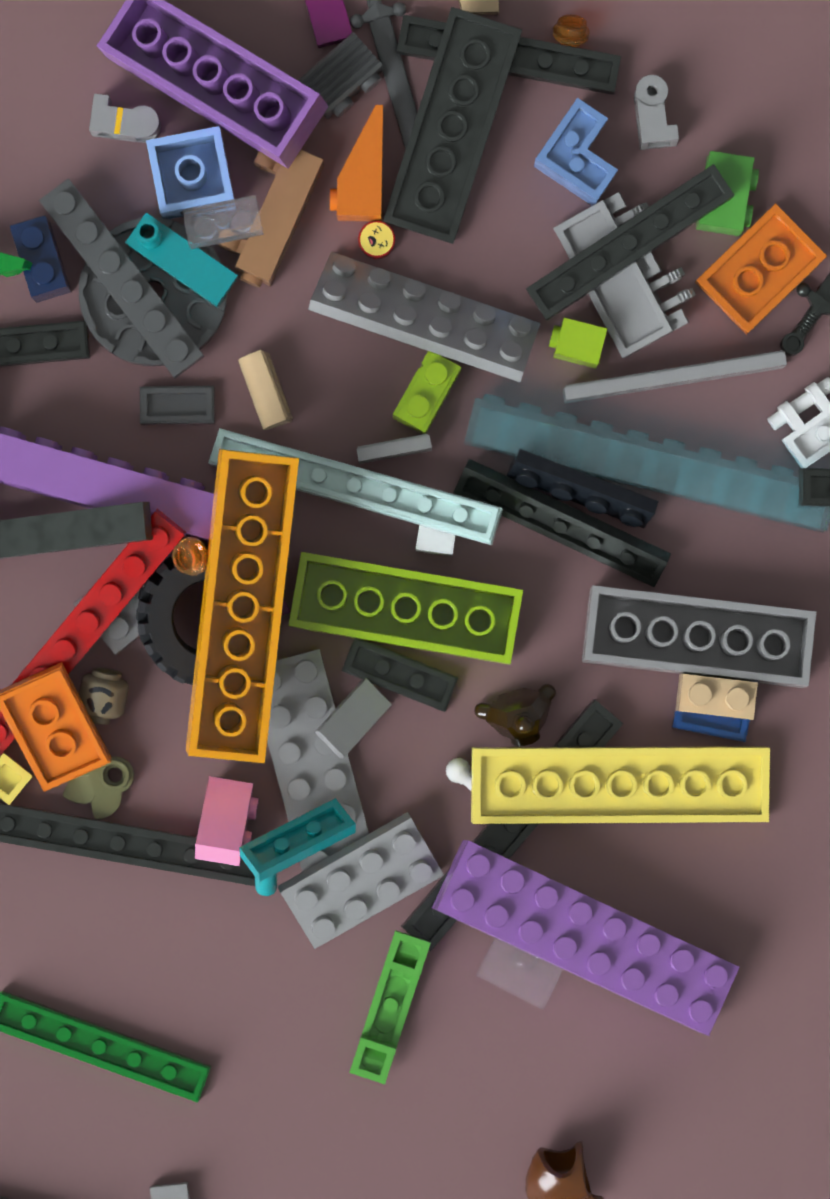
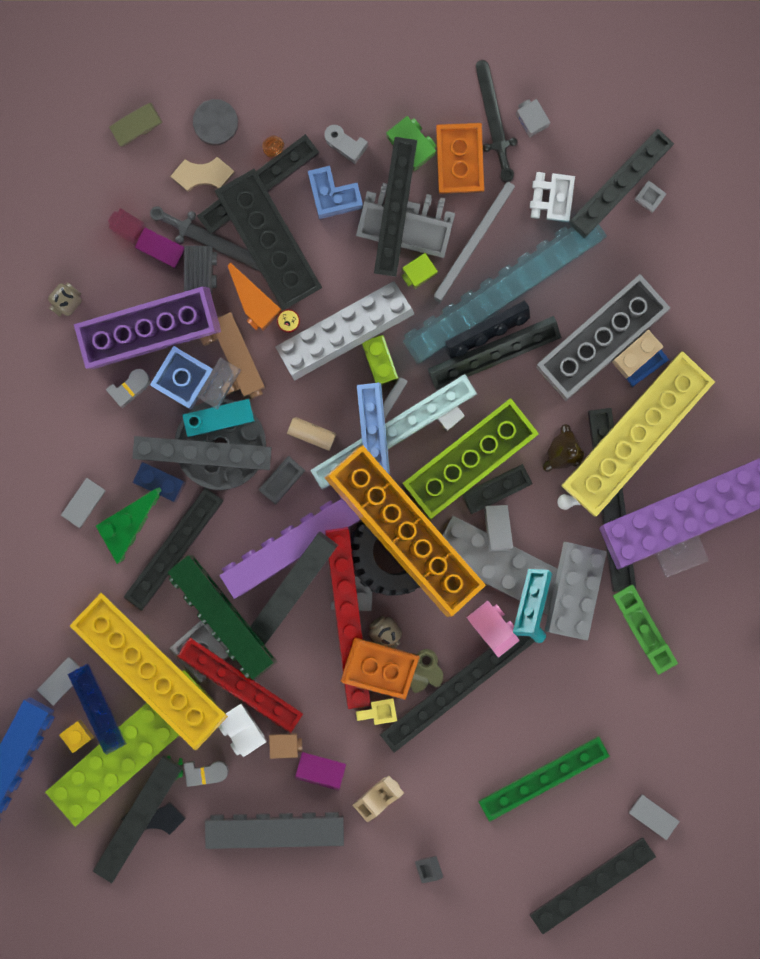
camera: 45 degrees left, 0 degrees up
(190, 556) = (361, 534): clear orange plate -> none
(340, 453) = (373, 422): none -> light blue plate

